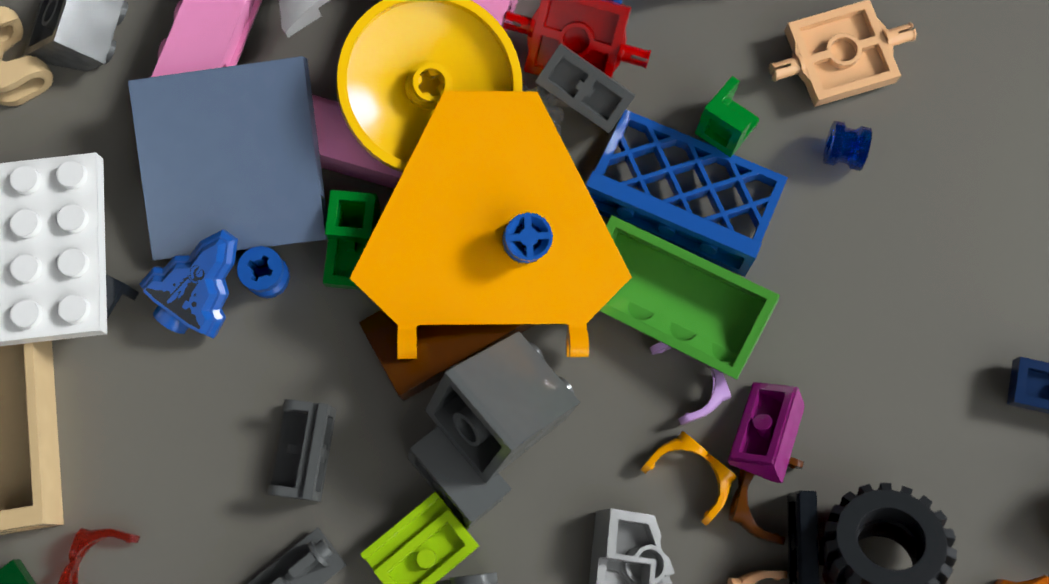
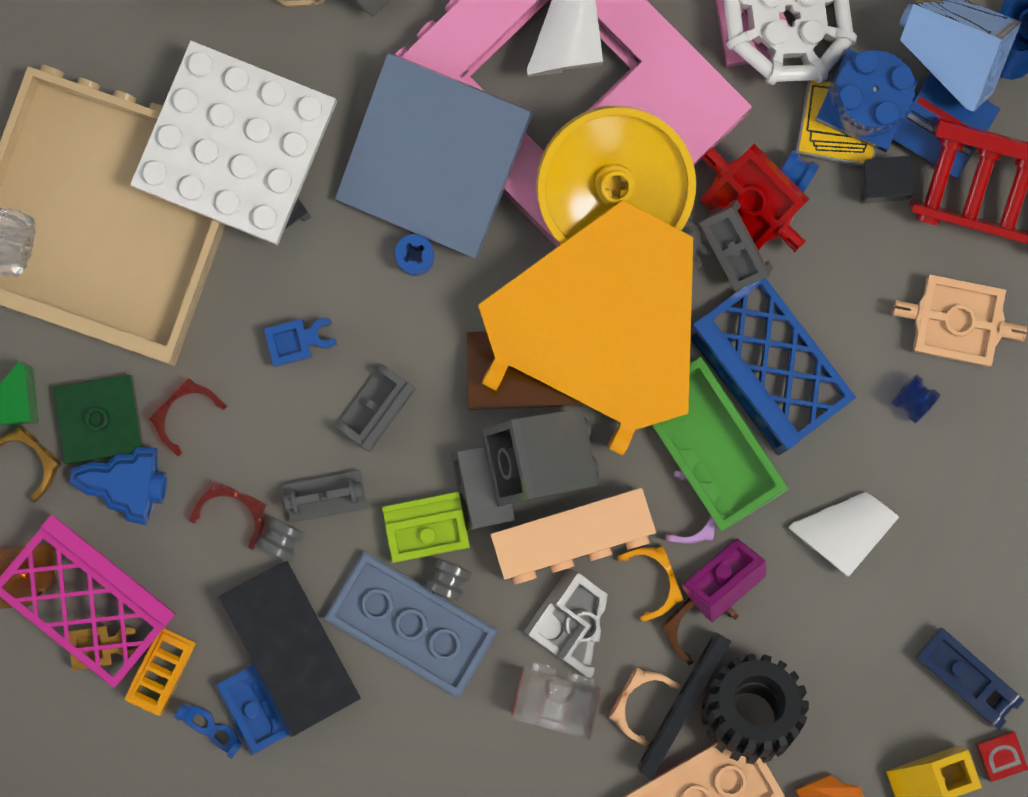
camera: 30 degrees right, 10 degrees up
(177, 427) = (292, 342): none -> blue plate
(193, 286) = (357, 240): blue rock -> none
(348, 229) = (494, 265): green brick -> none
(534, 229) = (627, 356): blue wheel -> none
(581, 470) = (572, 534): none -> light nougat brick
(725, 121) = (835, 328): green panel -> none
(860, 312) = (846, 530): none -> white slope

